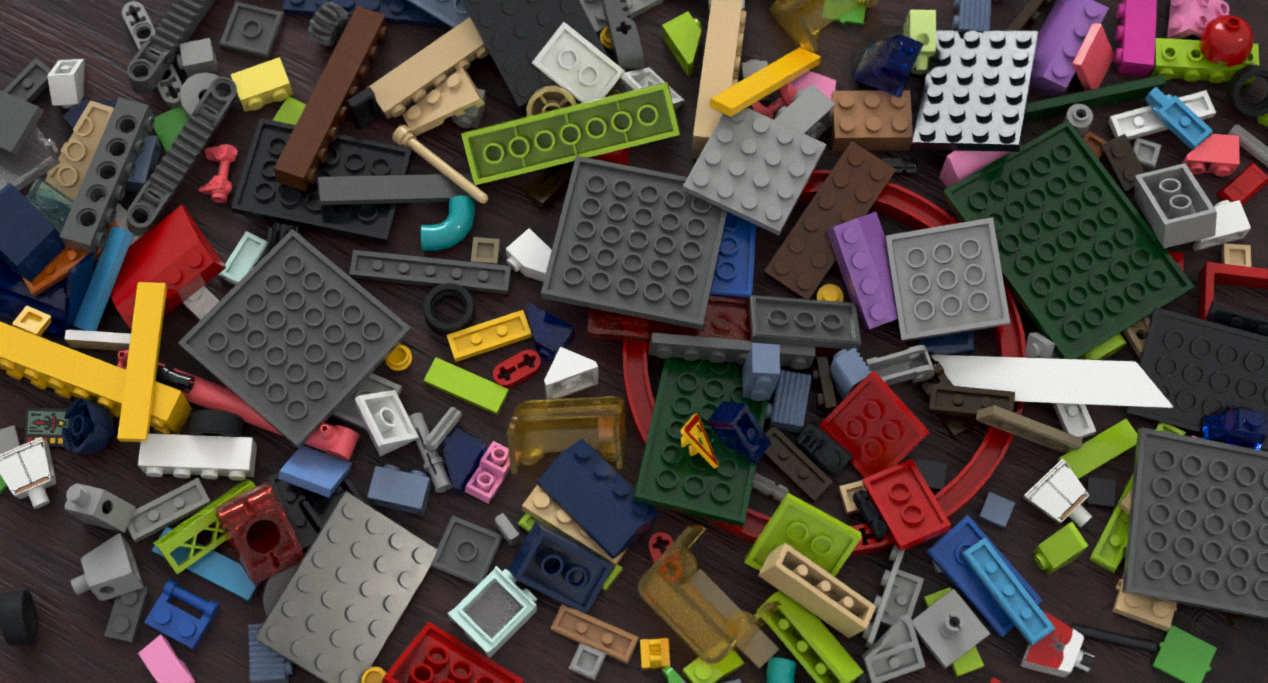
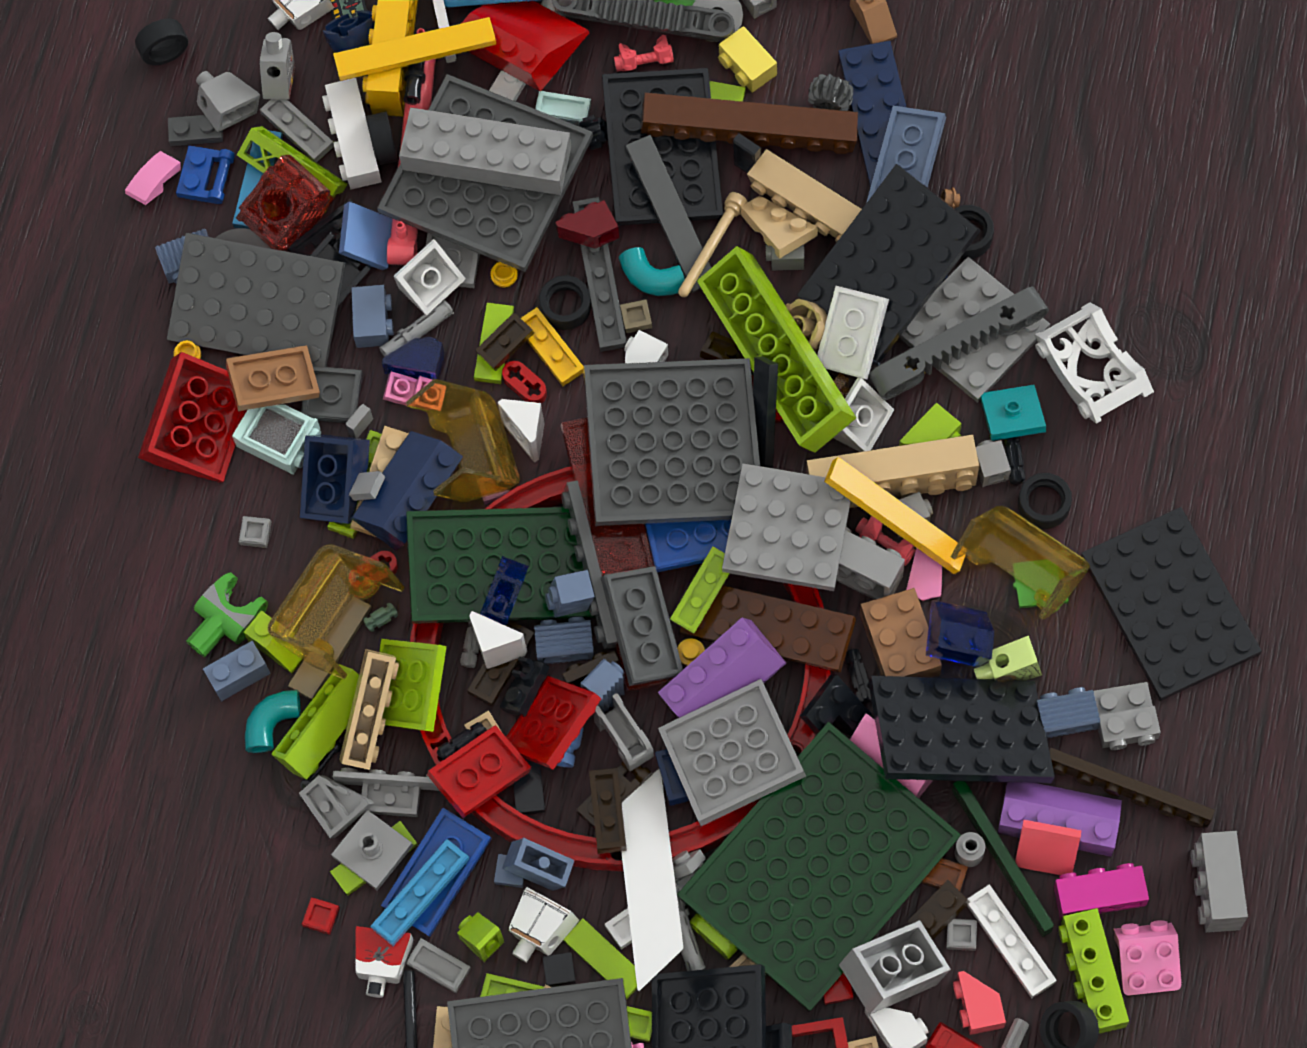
camera: 80 degrees right, 0 degrees up
(252, 30) = (807, 32): dark grey tile -> none
(280, 325) = (485, 151): none -> light grey brick
(386, 261) = (589, 227): none -> dark red slope
(441, 595) = (272, 378): none -> medium nougat plate
(442, 429) = (441, 333): light grey axle -> none
(474, 370) = (504, 341): none -> dark brown plate
(548, 332) = (565, 398): clear blue slope -> none
(586, 533) = (367, 485): none -> light grey tile
(594, 633) = (282, 531): medium nougat tile -> none
(619, 150) = (765, 407): none -> black tile
(654, 653) = (277, 588): yellow tile -> none
(695, 434) = (481, 552): yellow piece -> none
(714, 563) = (380, 617): none -> sand green piece
(783, 263) = (701, 592): none -> lime tile
(783, 457) = (497, 641): none -> white slope
(924, 187) = (833, 703): none -> black plate
(1006, 478) = (538, 864): none -> sand blue brick
(1029, 429) = (593, 872): dark tan tile -> none
(1072, 598) = (438, 965): none -> light grey tile
(1178, 118) = (1004, 954): dark azure hinge -> none
(1227, 40) = (1112, 981): red cylinder -> none

